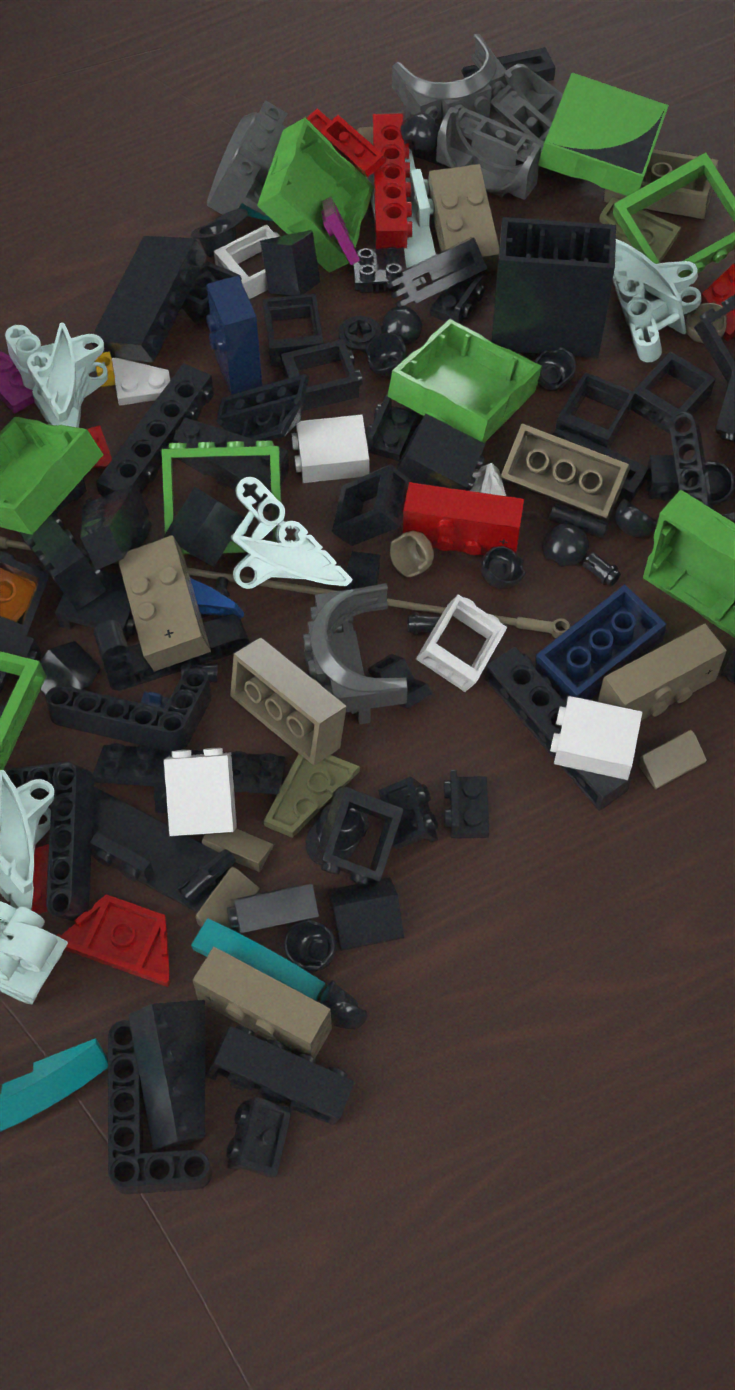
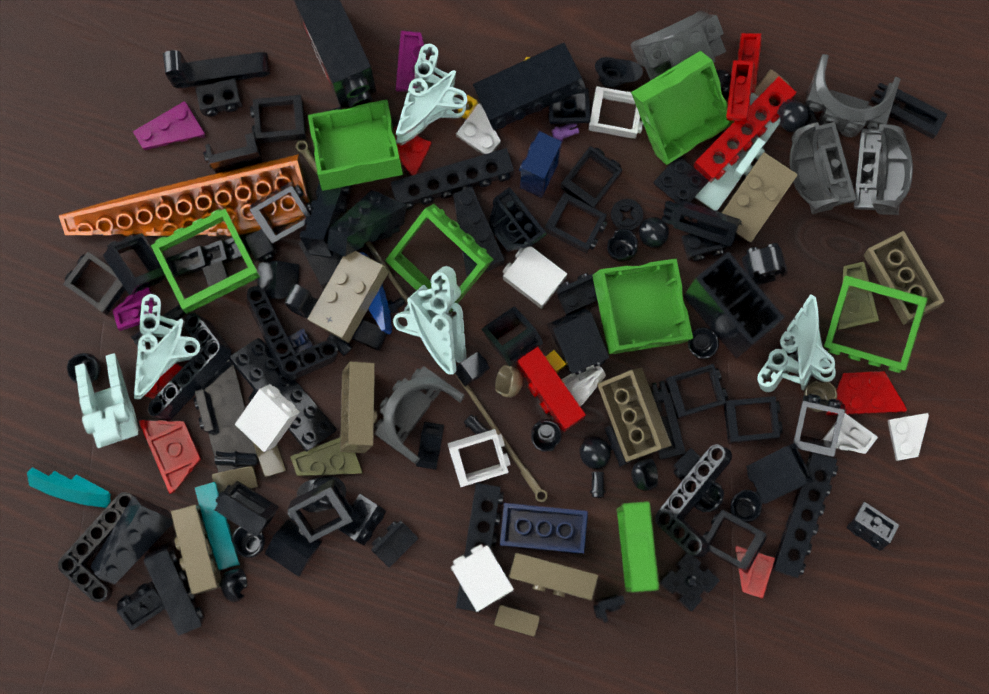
camera: 45 degrees right, 20 degrees up
(204, 526) = (411, 267): black slope -> none
(290, 263) = (626, 139): black slope -> none
(336, 226) = (672, 138): magenta wing -> none
(603, 135) = (890, 224): bright green tile -> none

